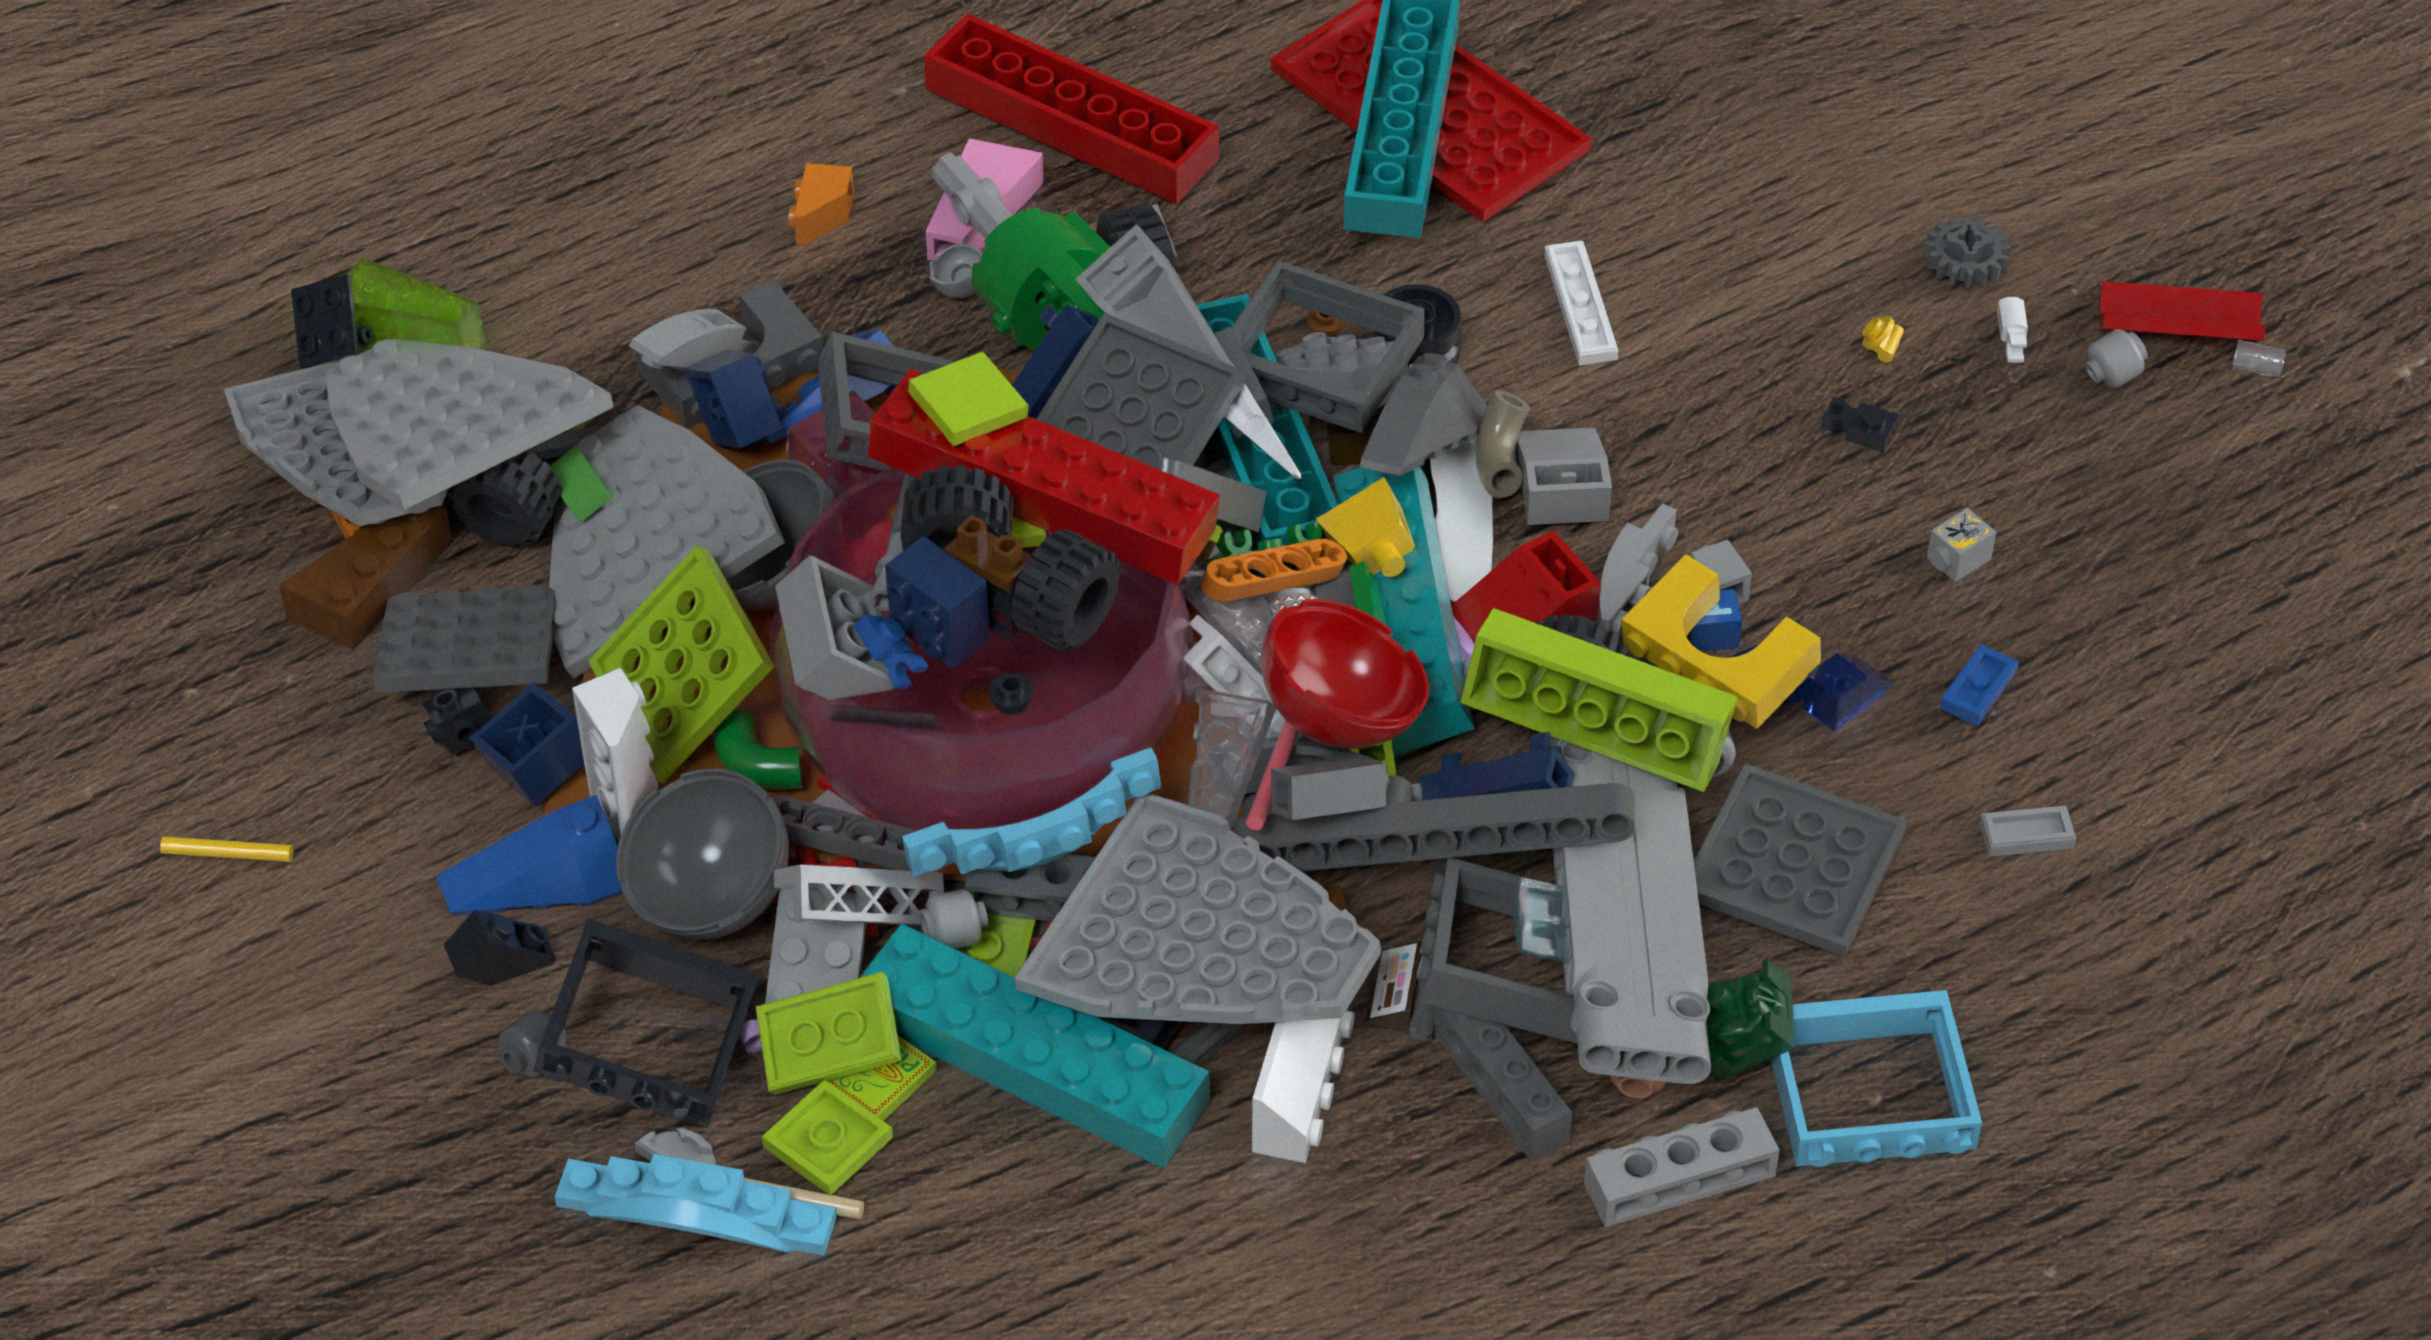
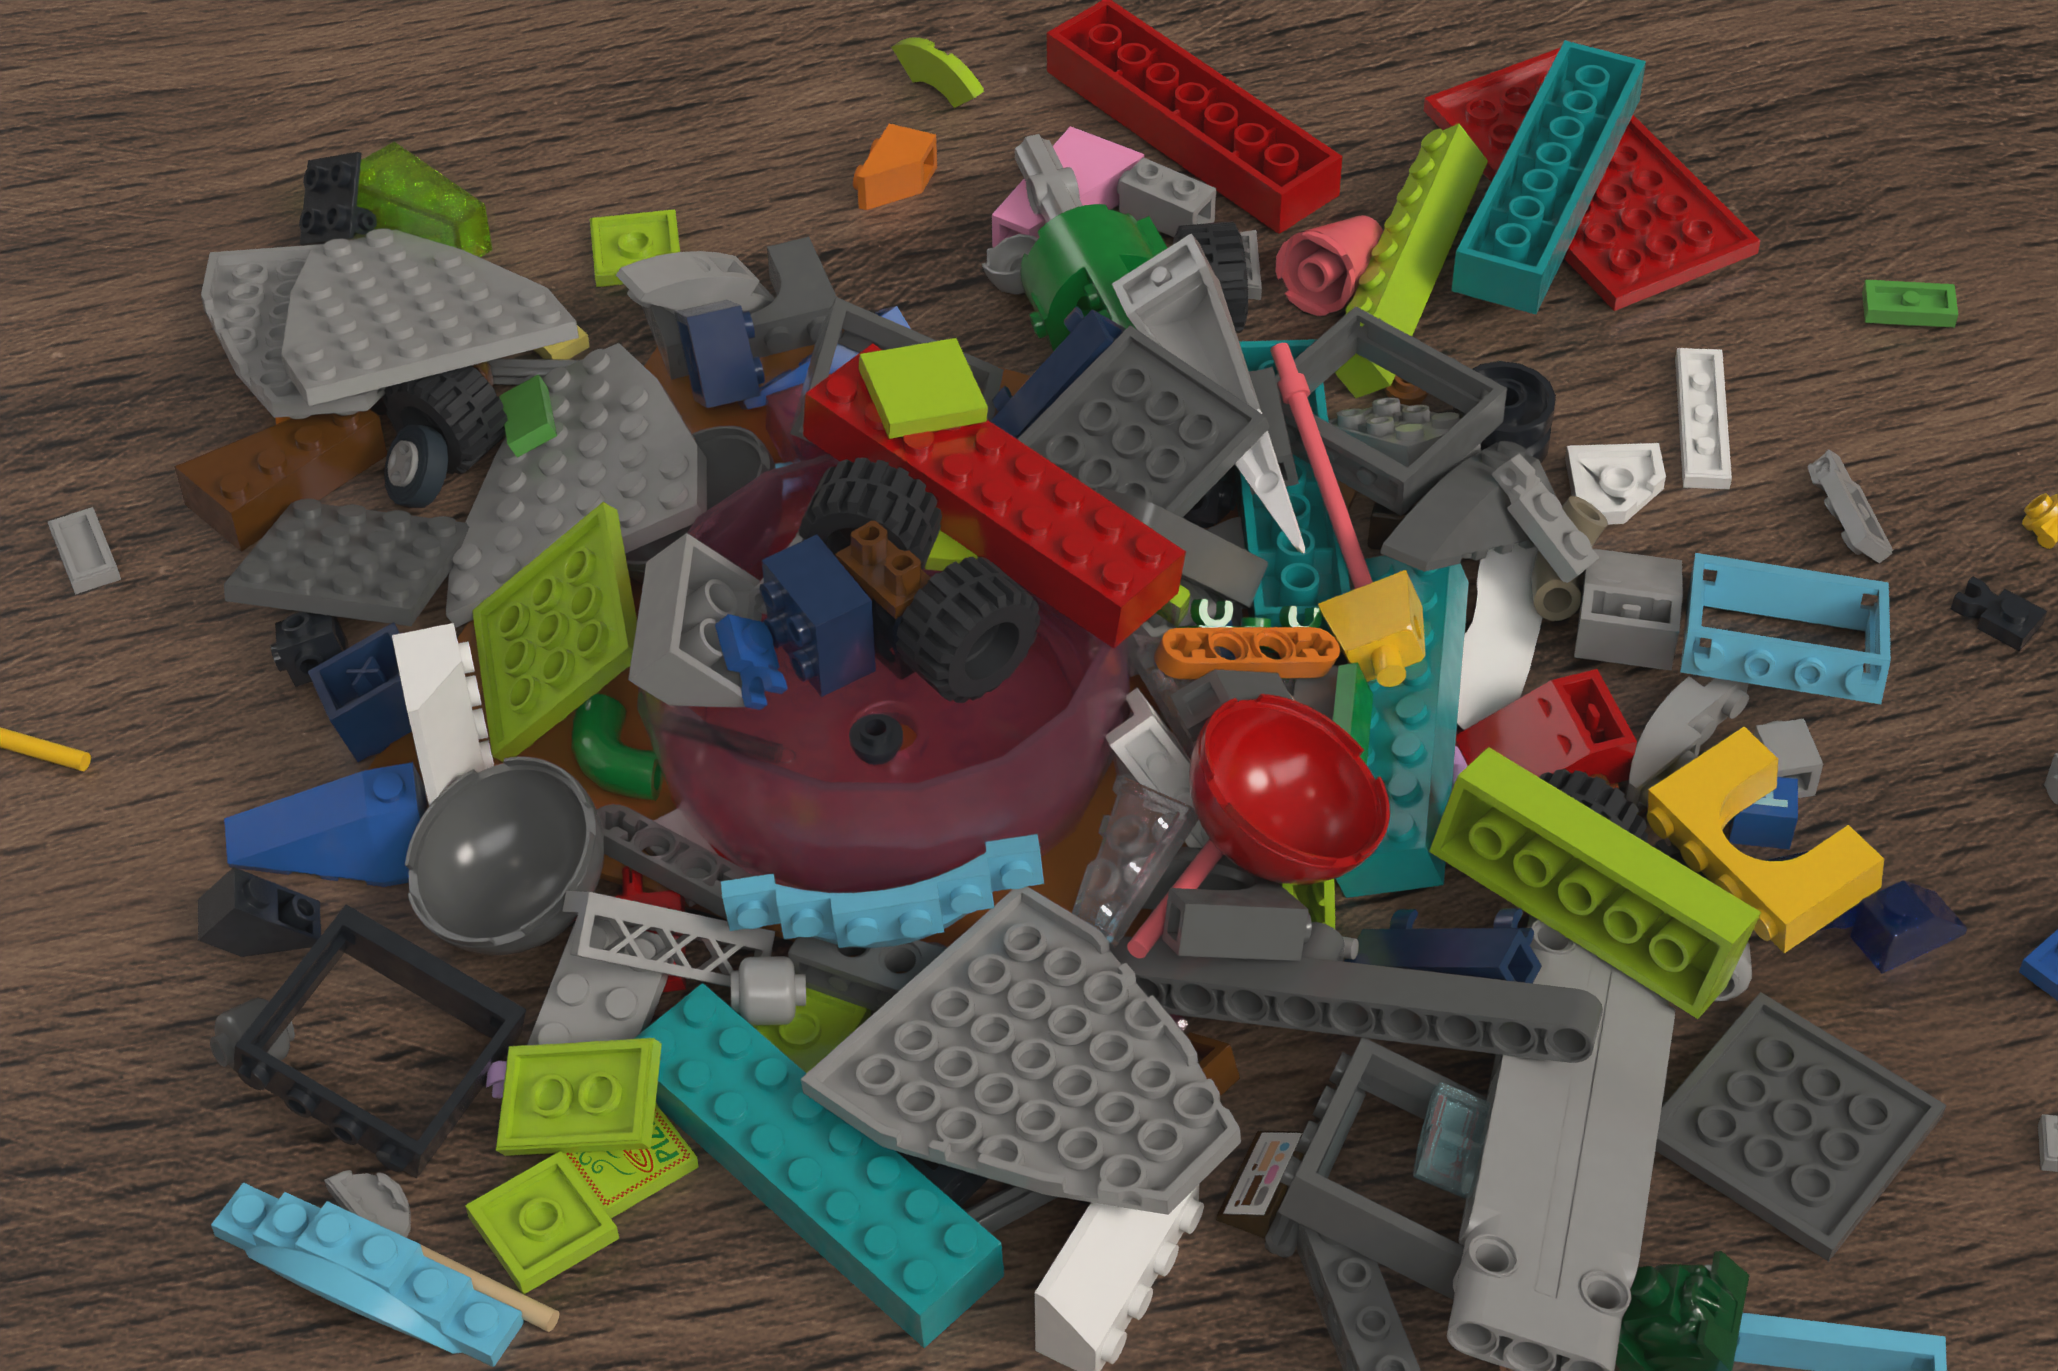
camera: 15 degrees right, 0 degrees up
(213, 675) = (84, 550): none -> light grey tile
(491, 546) = (416, 466): none -> black wheel
(607, 315) = (628, 239): none -> lime tile
(827, 103) = (937, 69): none -> lime tile
(1071, 188) = (1165, 196): none -> light grey brick
(1231, 224) = (1326, 263): none -> coral cone
(1252, 345) = (1294, 392): none -> coral bar
(1259, 608) = (1205, 695): none -> dark grey slope
(1300, 192) = (1415, 244): none -> lime brick
(1479, 414) = (1544, 519): none -> light grey hinge
(1522, 366) = (1616, 477): none -> white plate
(1694, 441) = (1792, 596): none -> medium azure window
(1720, 356) = (1850, 507): none -> light grey hinge
(1729, 172) = (1910, 303): none -> bright green plate

